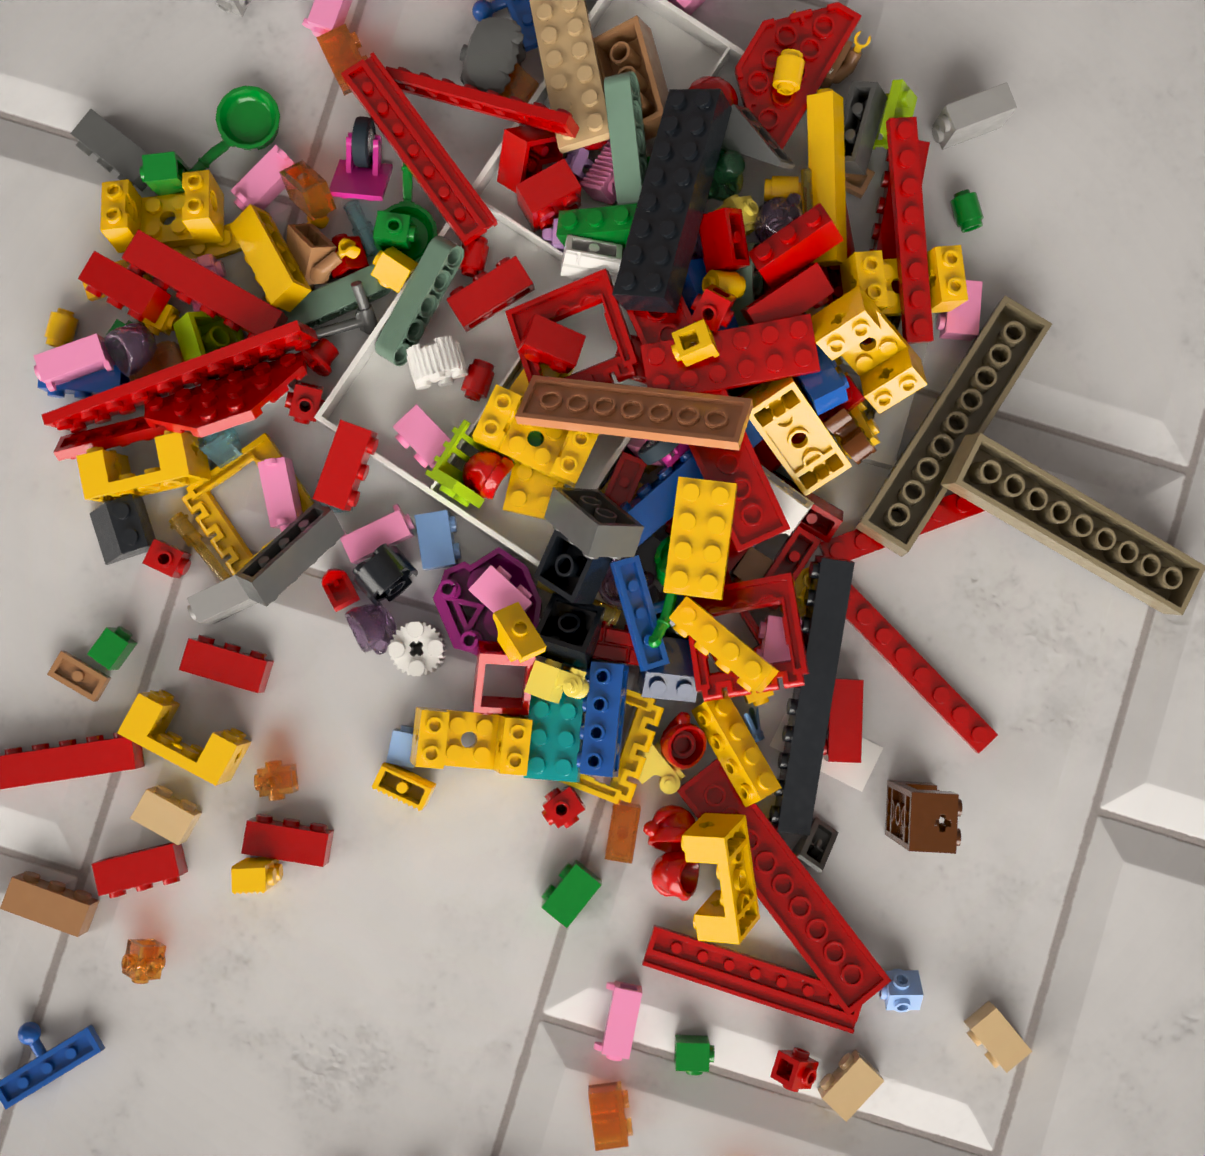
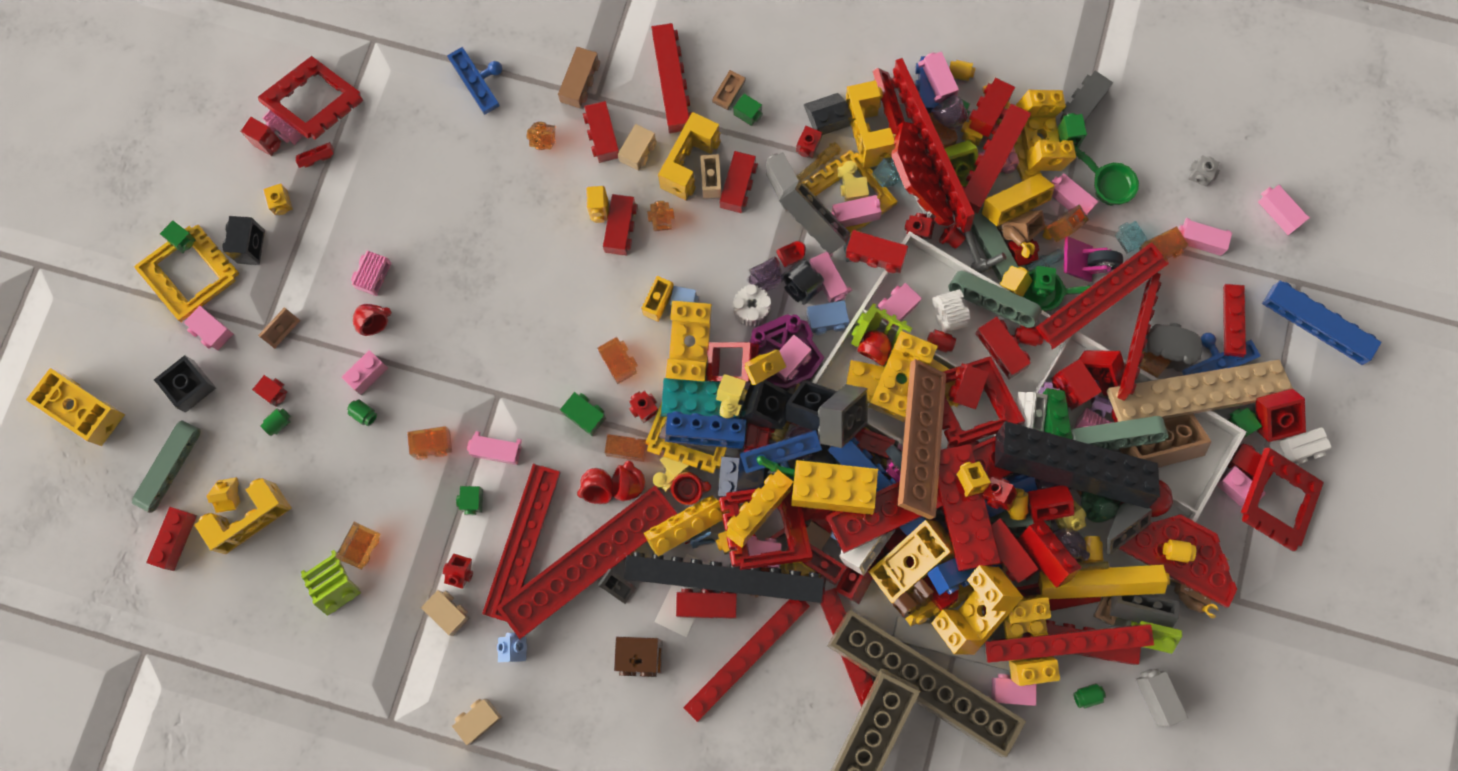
camera: 90 degrees right, 10 degrees down
(217, 705) = (711, 176): none -> tan brick
(240, 498) = (852, 187): none -> light yellow brick
(328, 104) = (1130, 236): none -> clear light blue brick
(493, 844) = (617, 360): none -> clear orange brick
(734, 909) = (577, 525): yellow plate -> none

